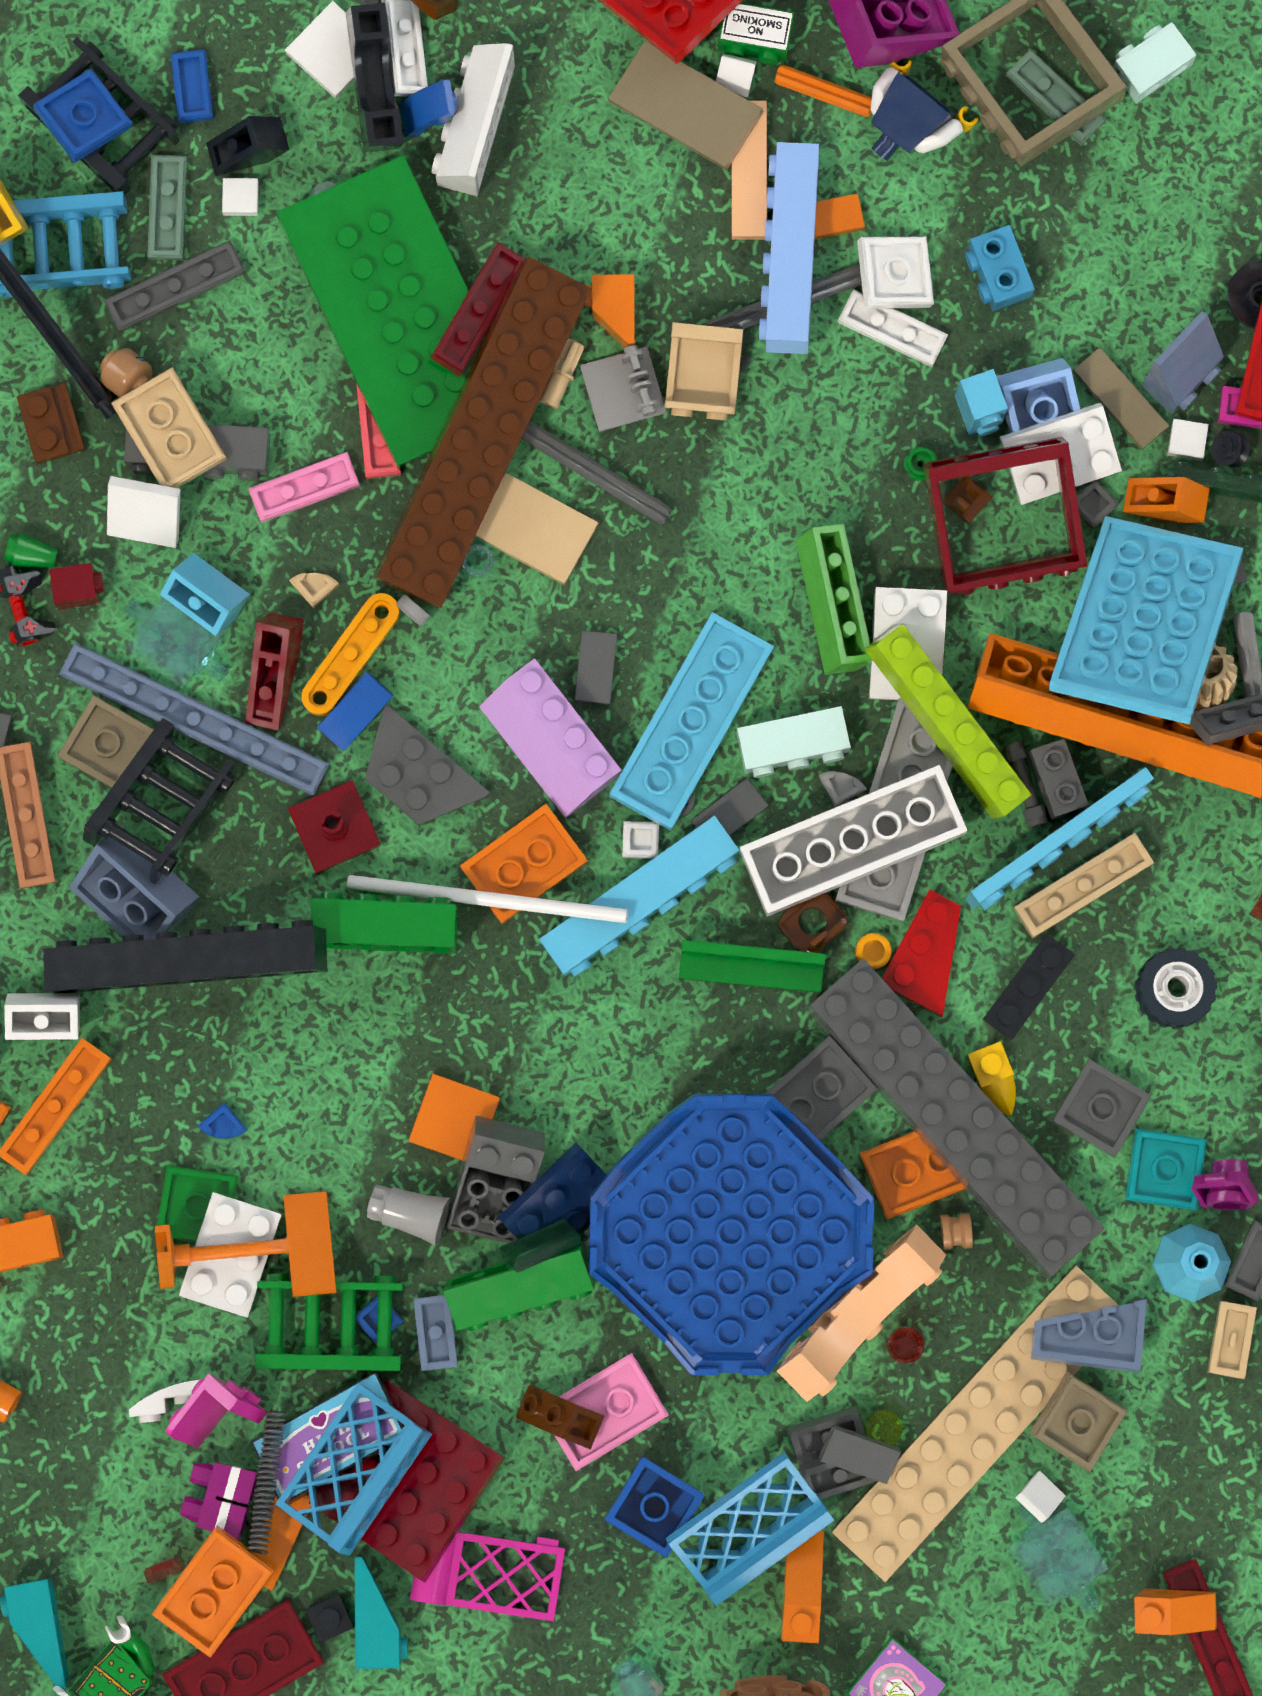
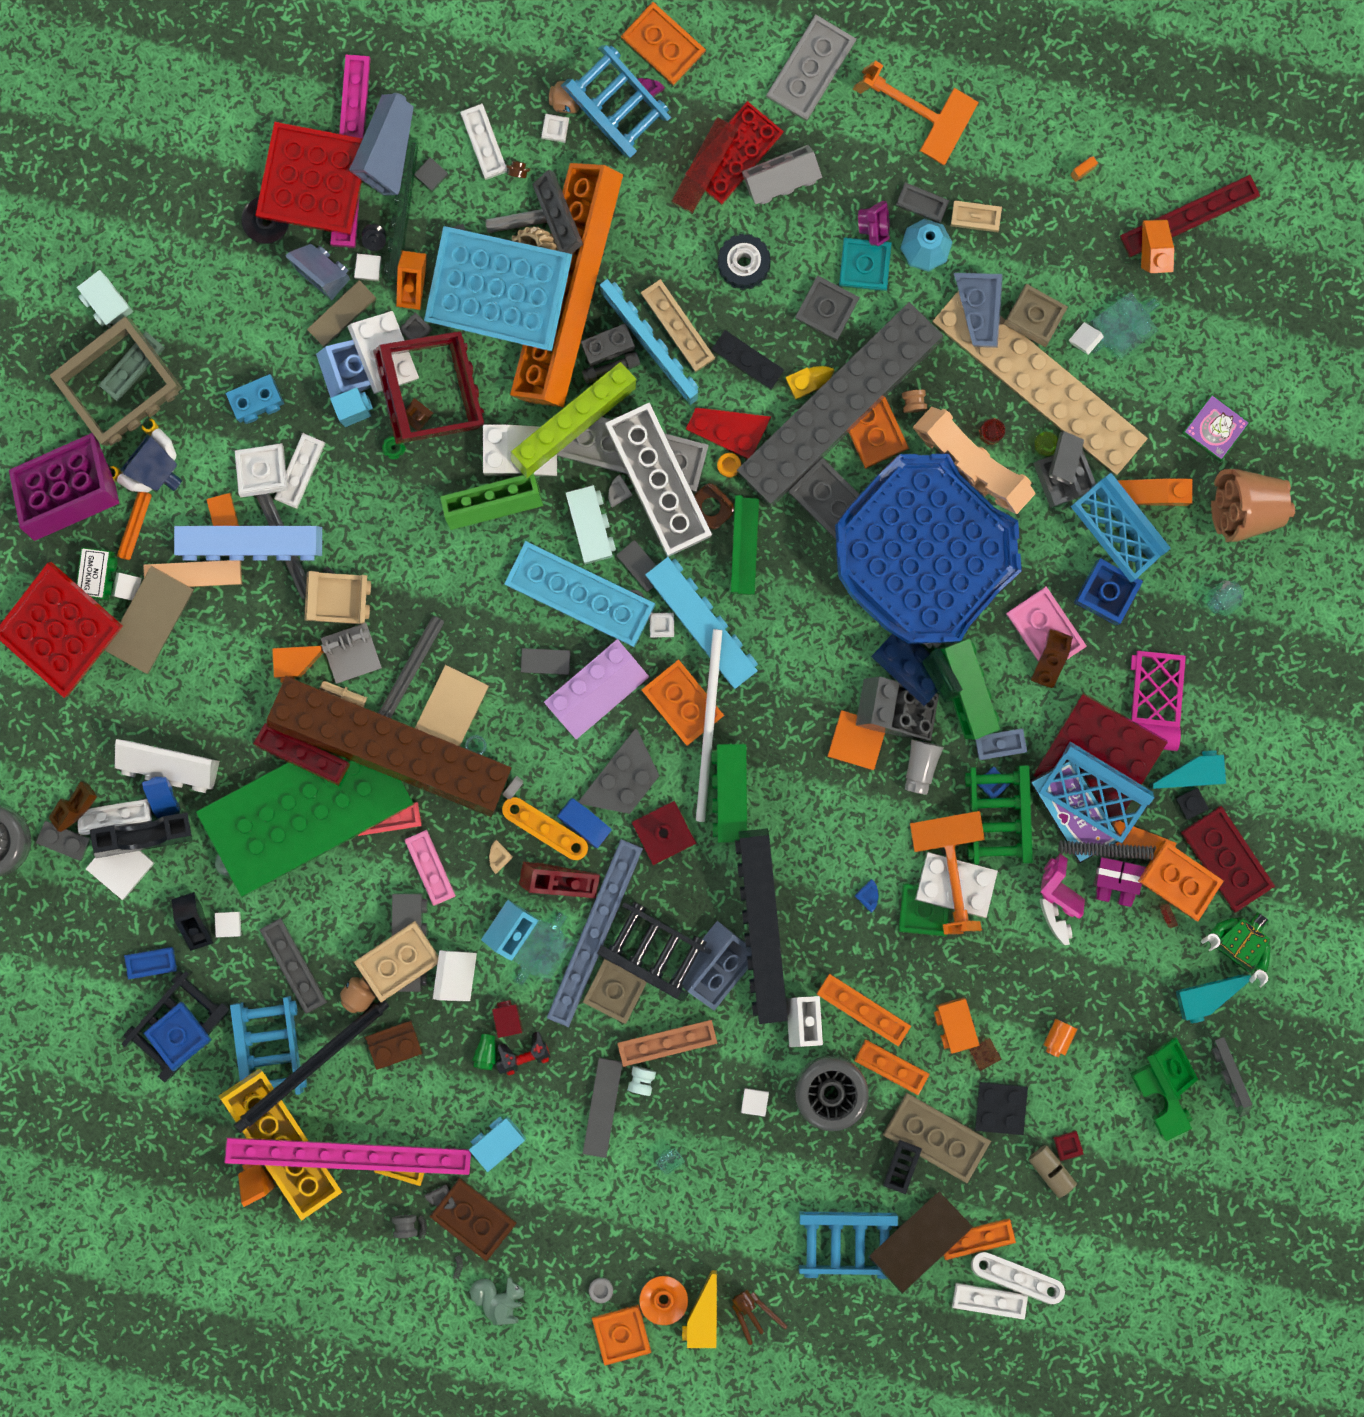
camera: 90 degrees left, 5 degrees up
(167, 207) = (237, 974): sand green tile -> none

